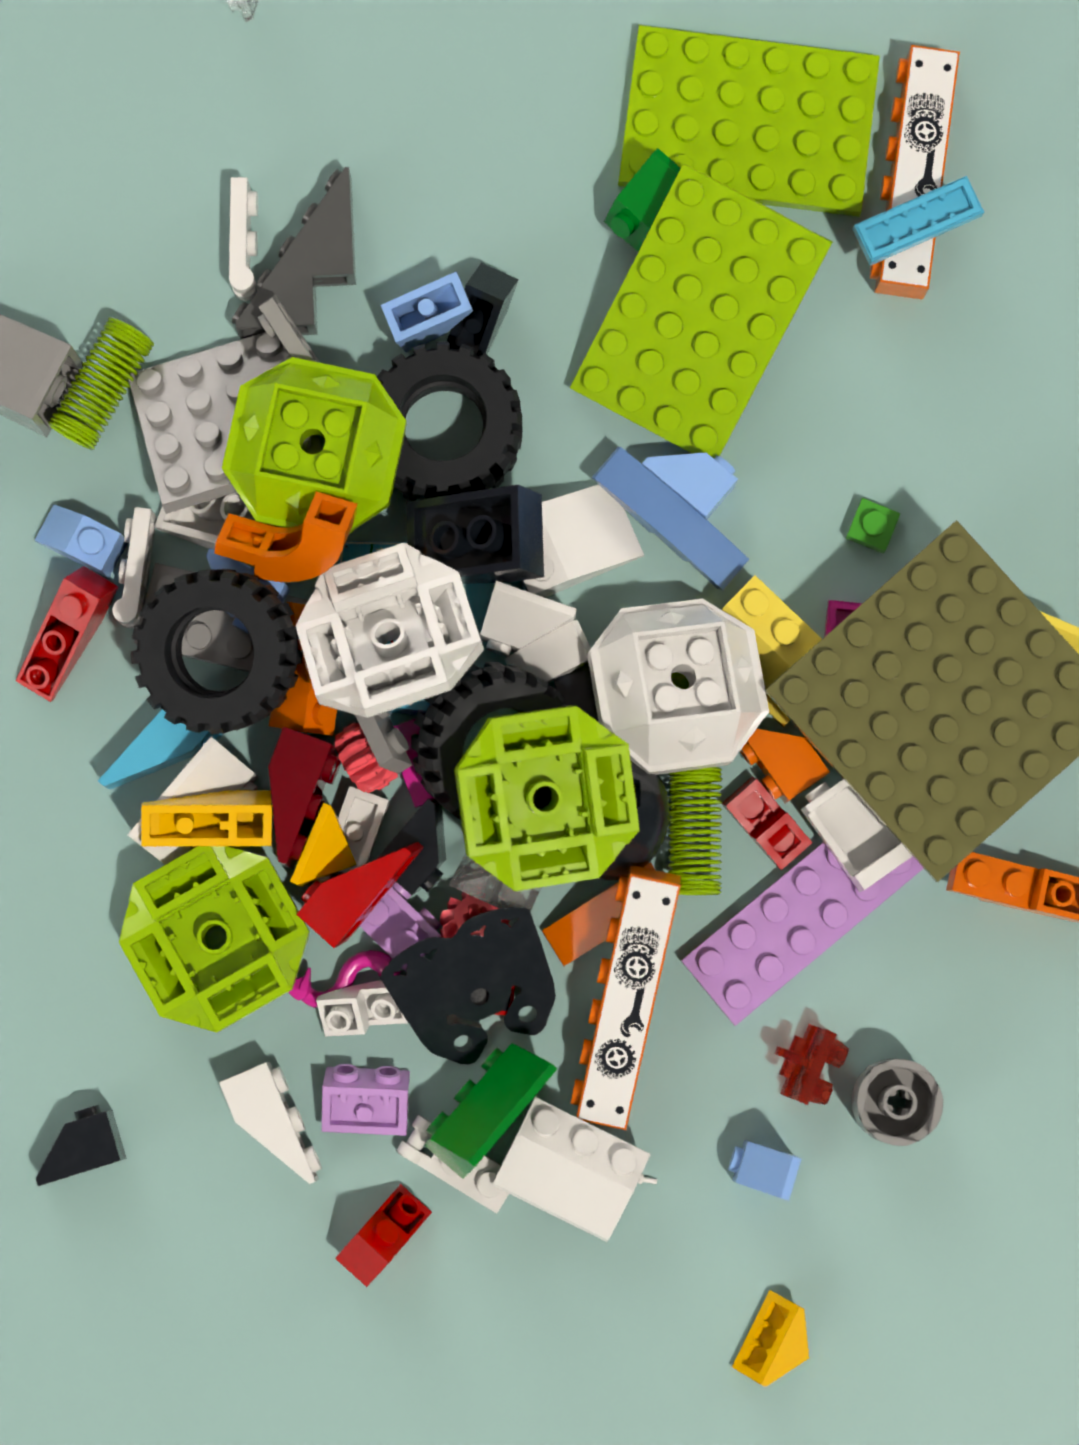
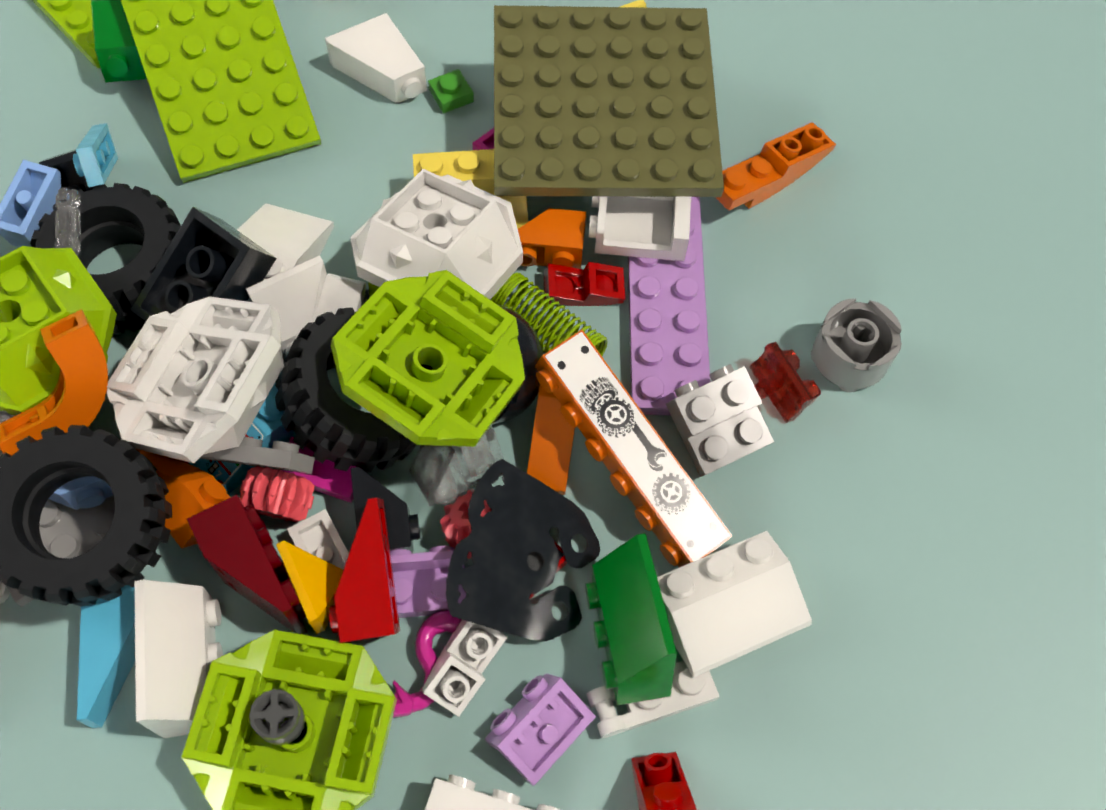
camera: 50 degrees left, 20 degrees down
(199, 922) = (271, 710): none -> dark grey wheel
(209, 820) = (193, 645): yellow slope -> none
(429, 381) = (67, 219): none -> clear axle
(517, 315) = (95, 155): none -> medium azure plate
(670, 518) = (321, 182): medium blue slope -> none
(695, 478) = (313, 156): light blue slope -> none
(727, 1041) = (719, 419): none -> plate
(764, 1169) = (843, 461): light blue slope -> none
(774, 1341) = (980, 568): yellow slope -> none
(846, 434) = (378, 59): none -> white slope

